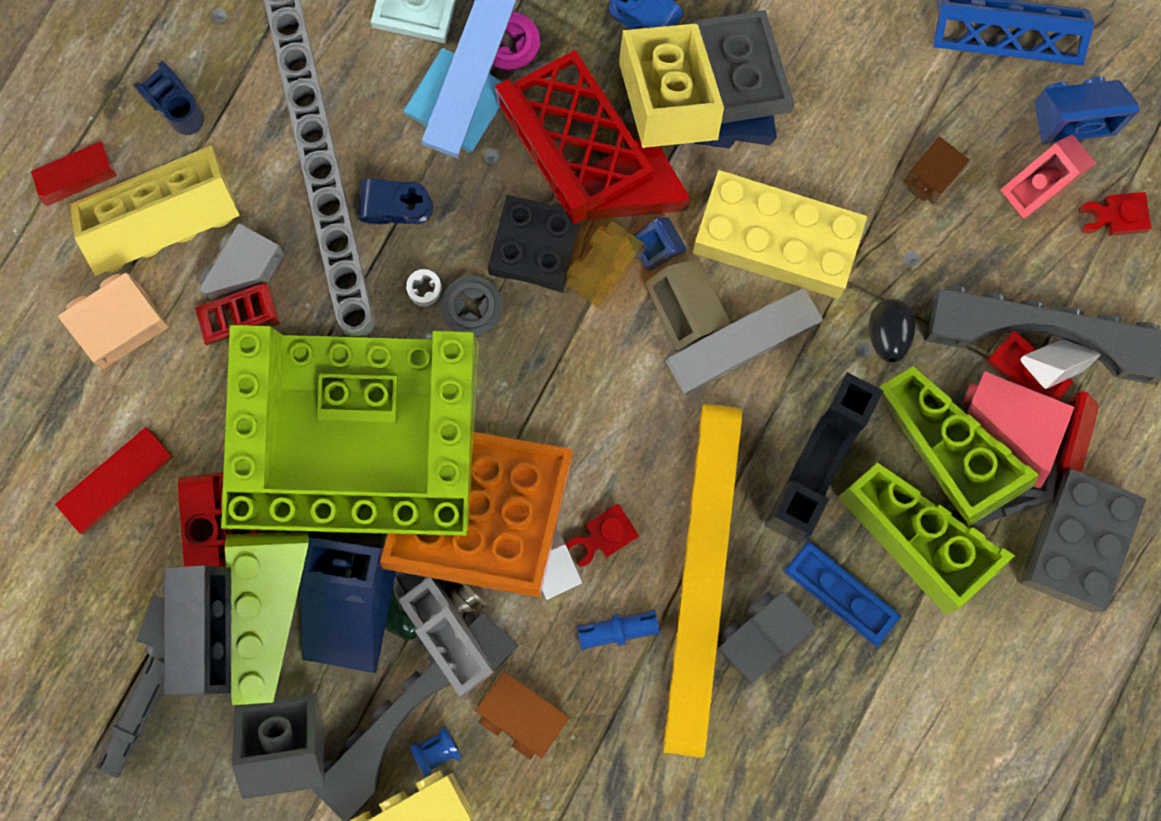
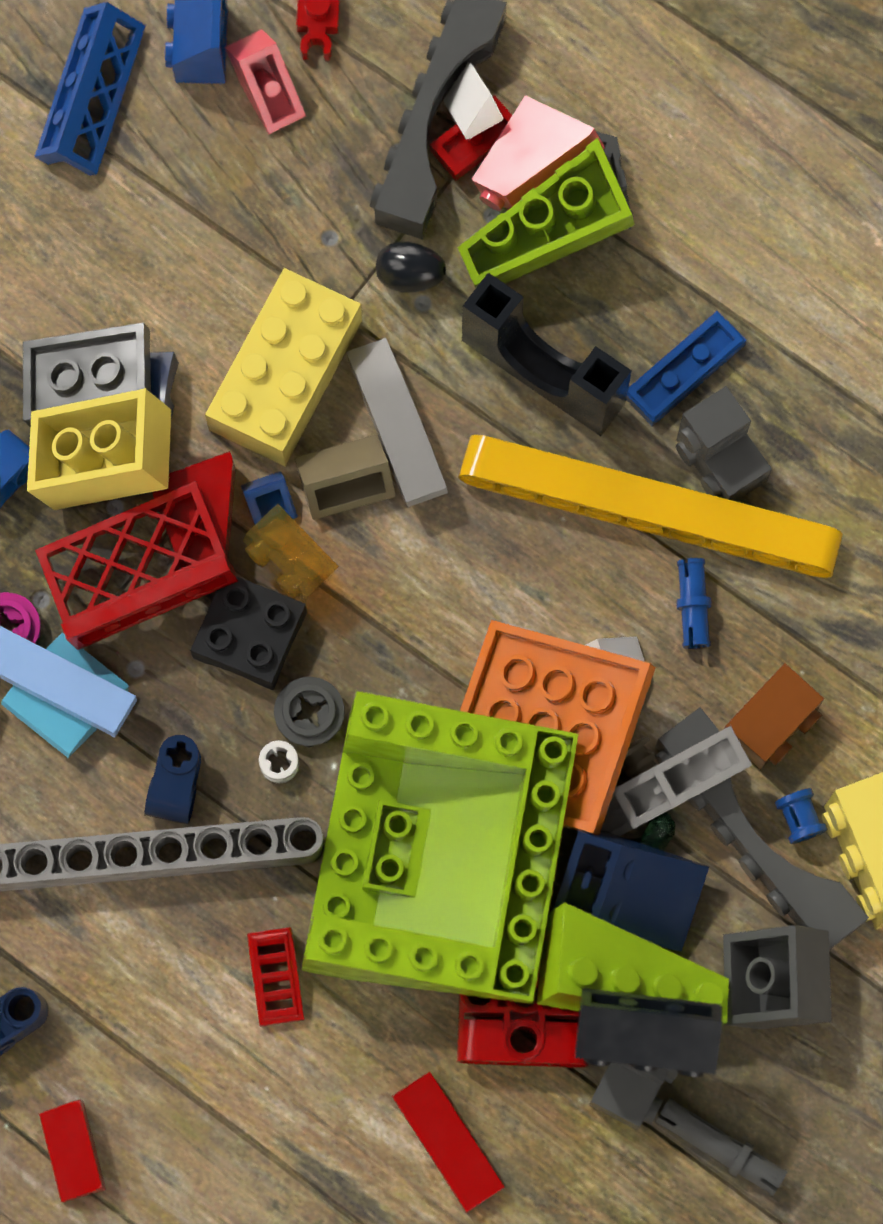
camera: 80 degrees left, 5 degrees down
(113, 319) = (266, 1112): light nougat slope -> none
(153, 211) = (136, 1057): light yellow slope -> none
(243, 263) = (221, 959): light grey slope -> none
(608, 533) = (586, 602): red plate -> none
(924, 538) = (641, 271): lime wedge -> none
(935, 171) = (240, 193): reddish brown brick -> none
(1078, 433) = (520, 87): red slope -> none
(1083, 541) = (665, 116): dark grey brick -> none

